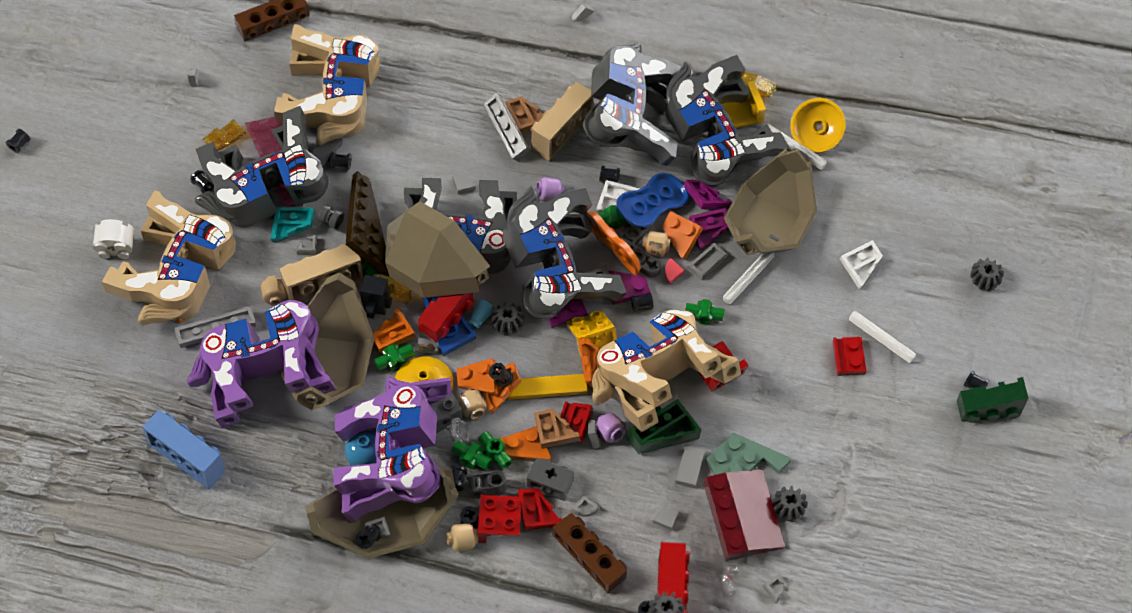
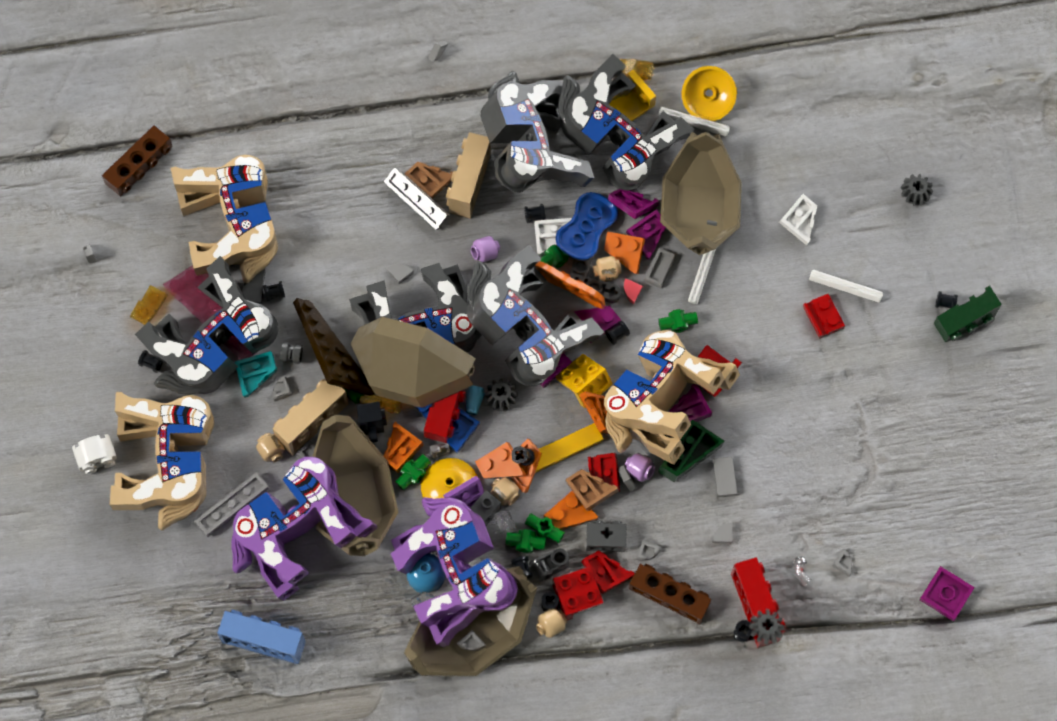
camera: 20 degrees left, 10 degrees up
(365, 535) = (465, 654): black bush -> none
(686, 392) = (693, 405): none -> magenta wing
(743, 513) = (790, 505): slope -> none
(744, 455) = (762, 456): sand green wing -> none
(782, 503) = (834, 481): dark grey gear -> none

